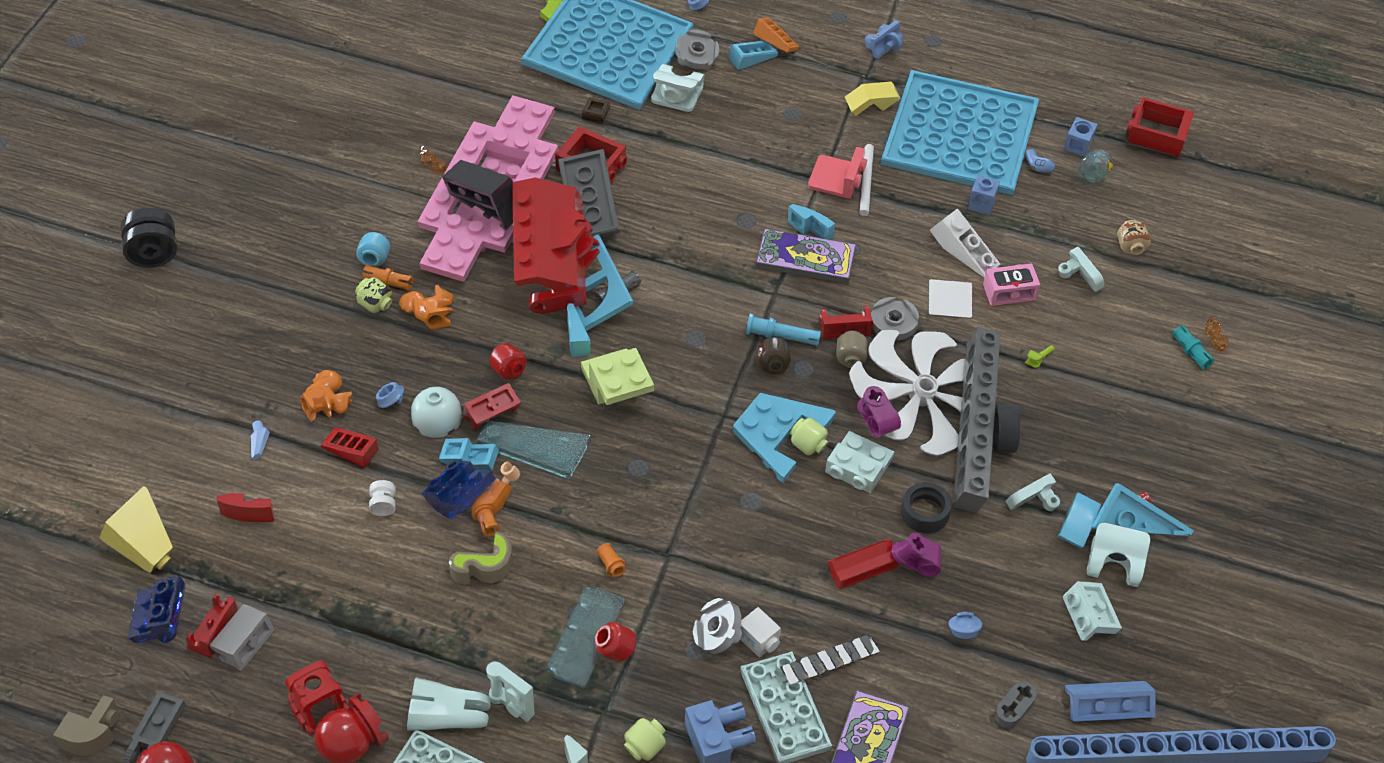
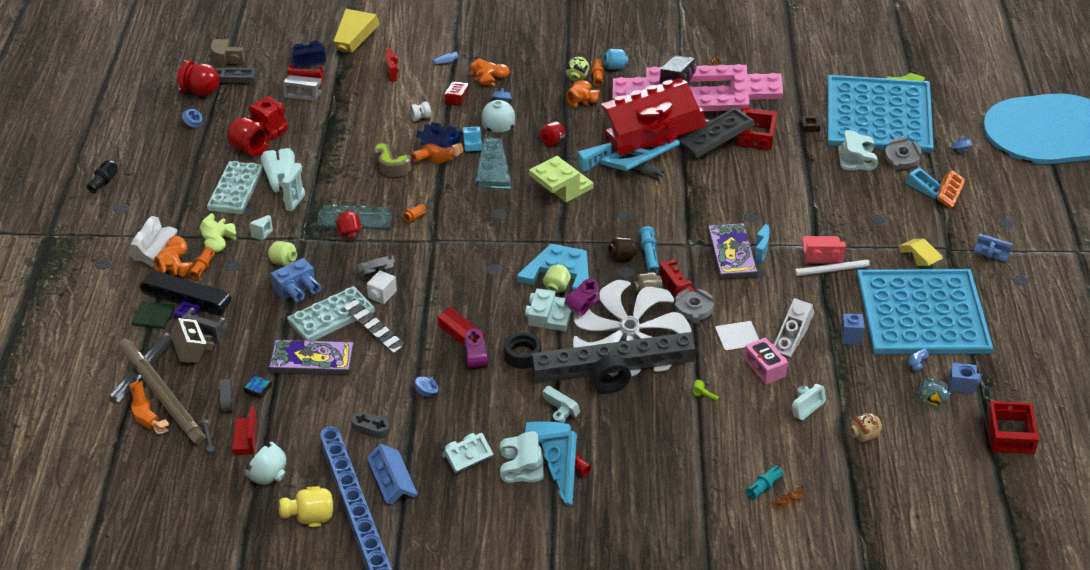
camera: 75 degrees right, 10 degrees down
(491, 405) = (511, 133): hinge -> none

